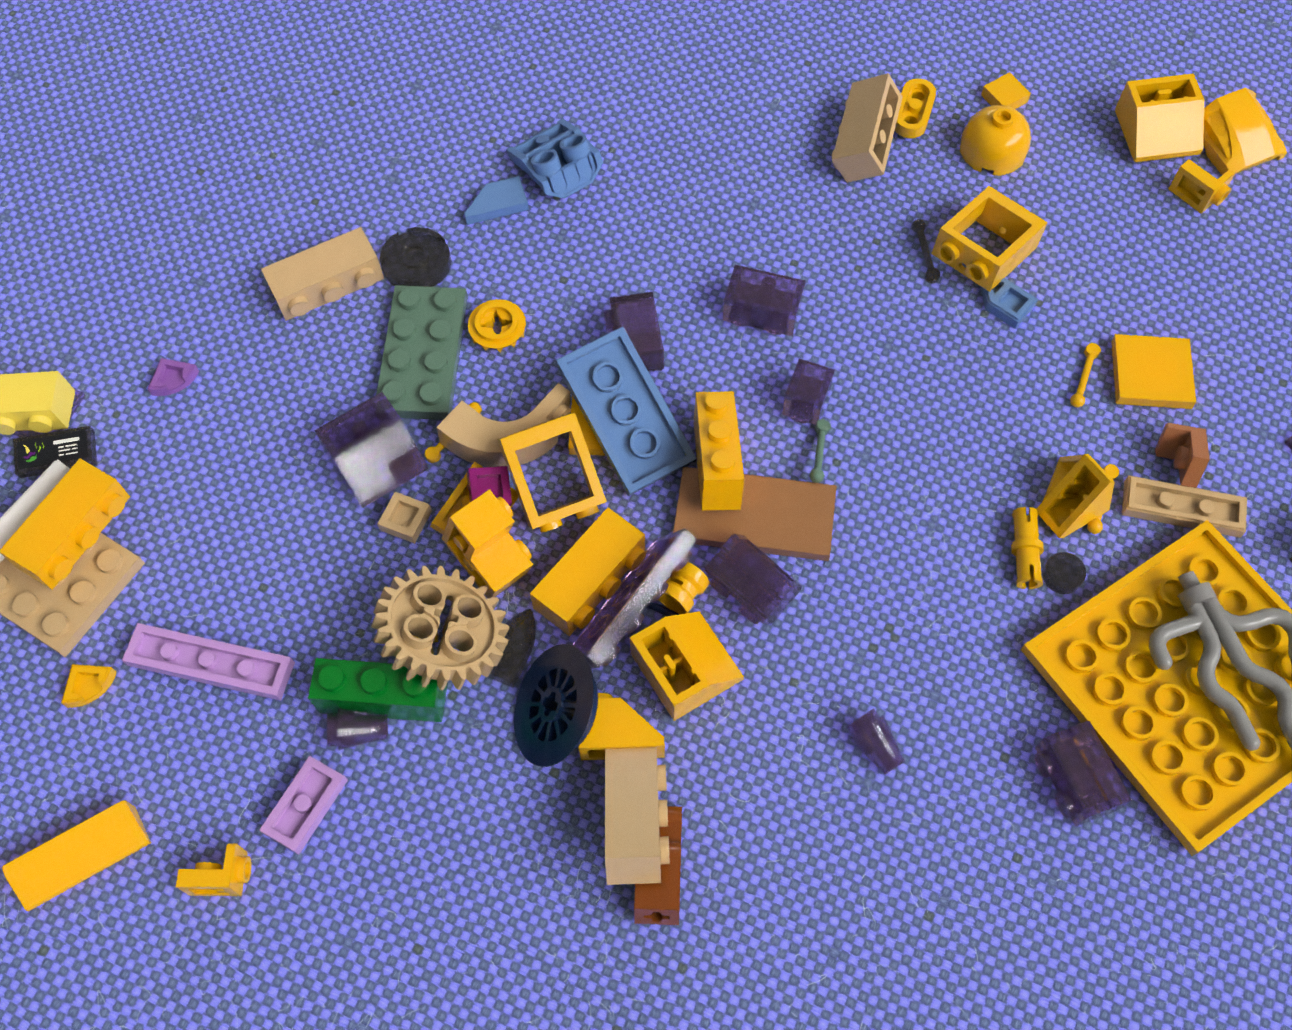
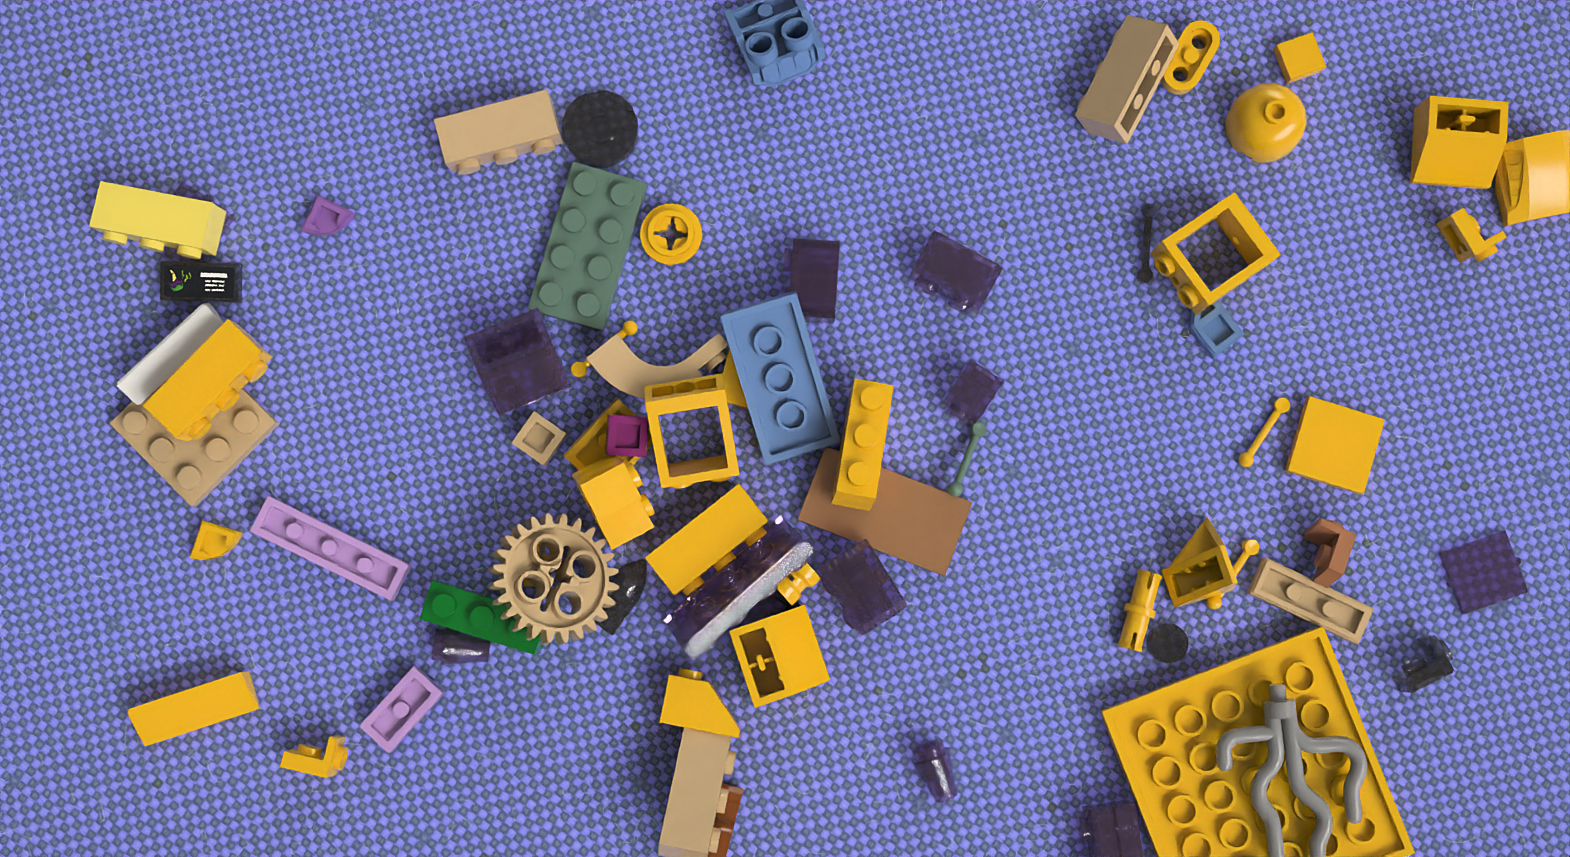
camera: 10 degrees right, 20 degrees up
(497, 200) = (702, 73): medium blue tile -> none
(555, 705) = (646, 676): dark blue piece -> none

